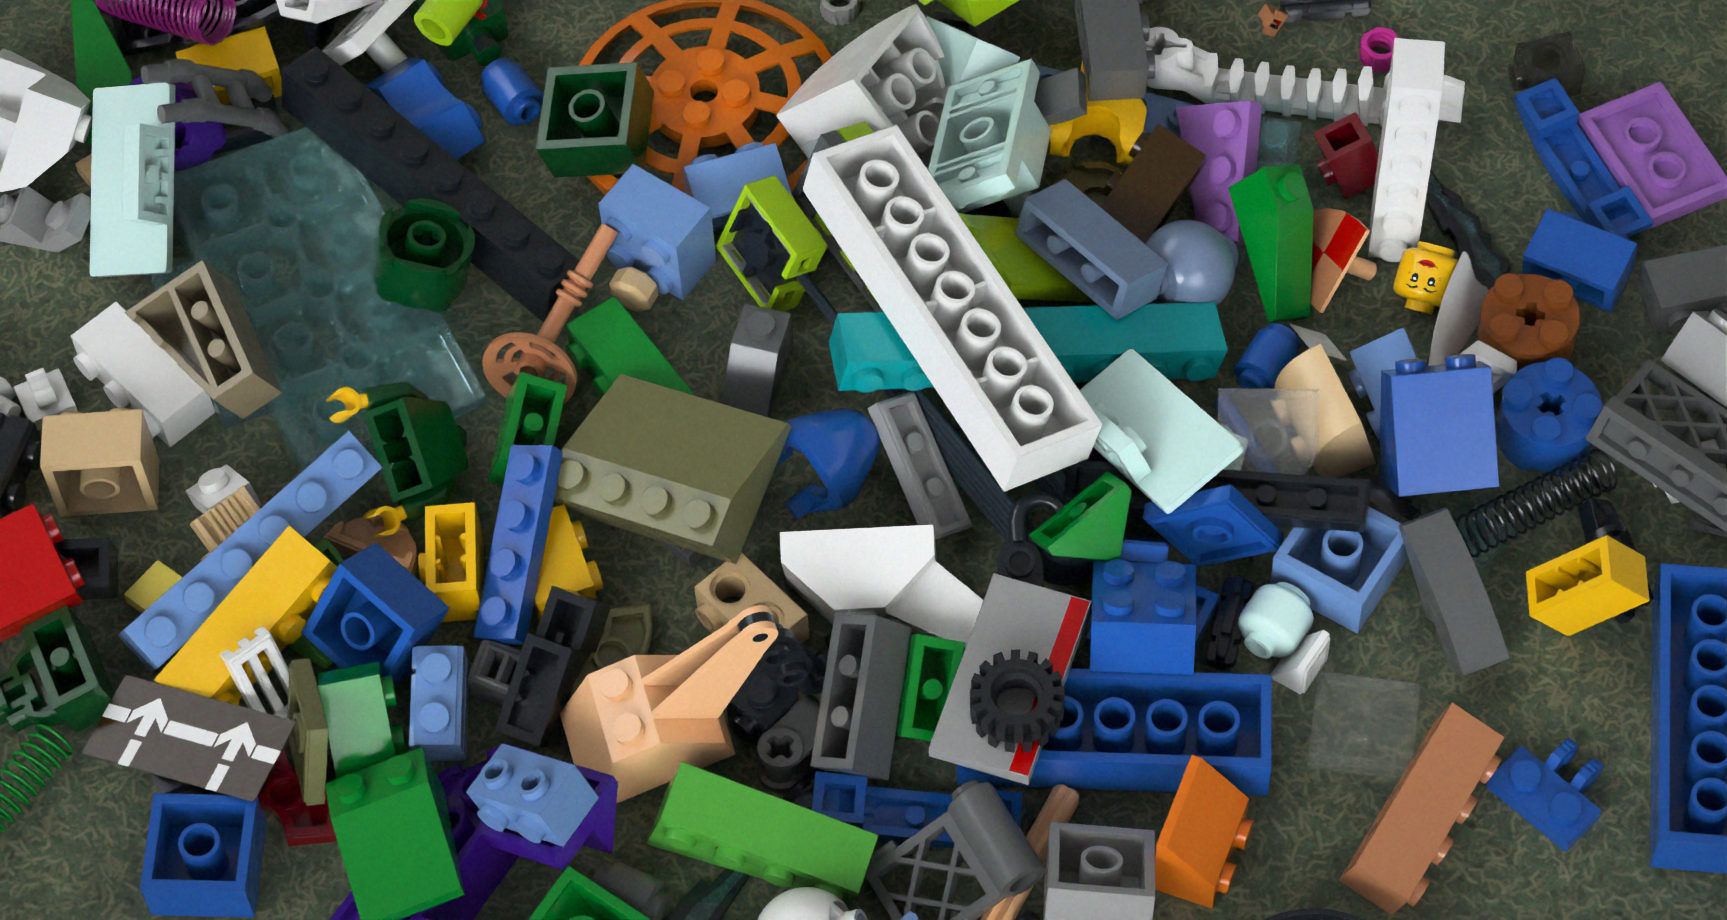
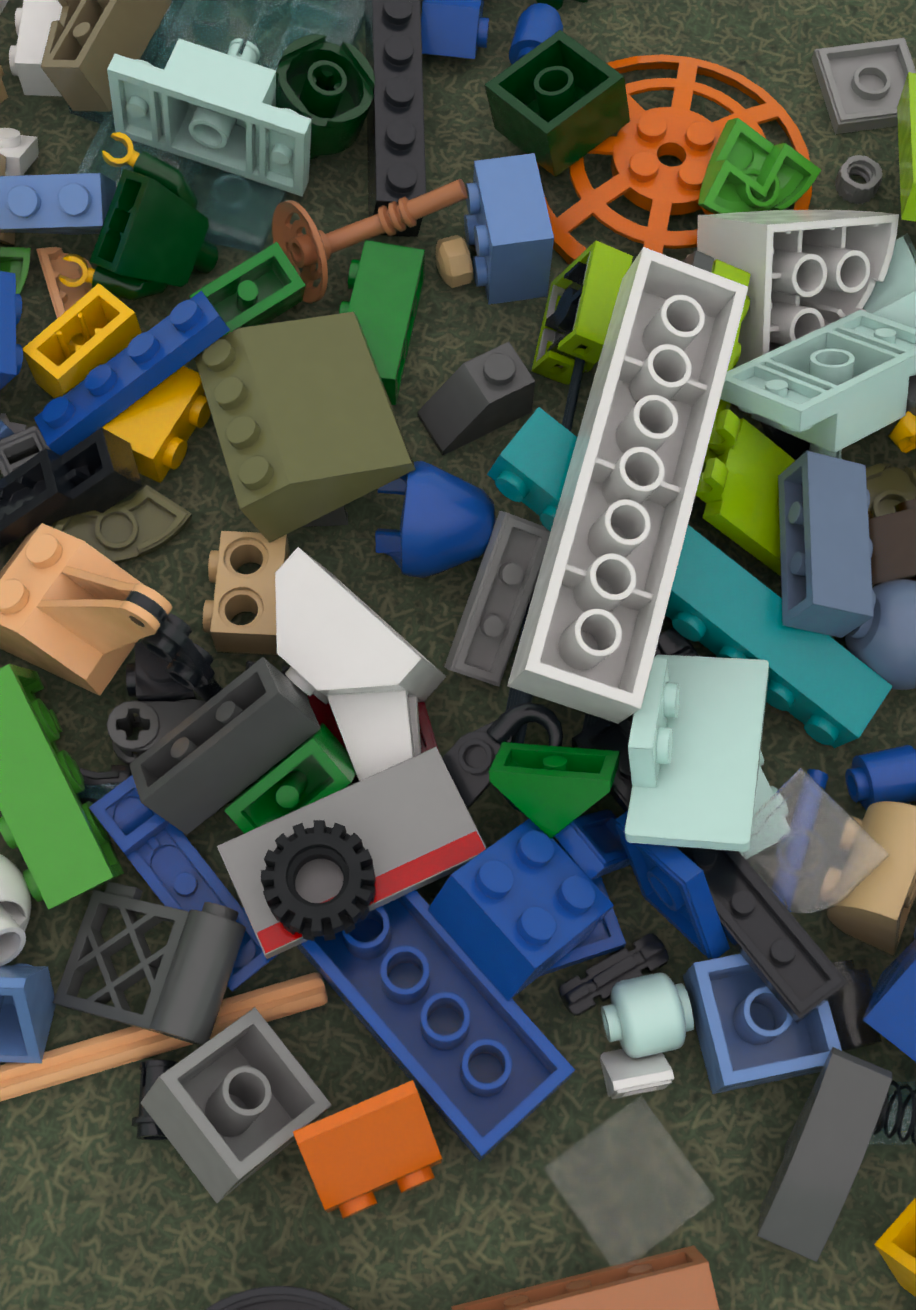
camera: 40 degrees right, 10 degrees up
(375, 325) = (213, 112): none -> light aqua brick
(721, 180) = (602, 221): medium blue brick -> none
(775, 57) = (753, 173): none -> bright green brick

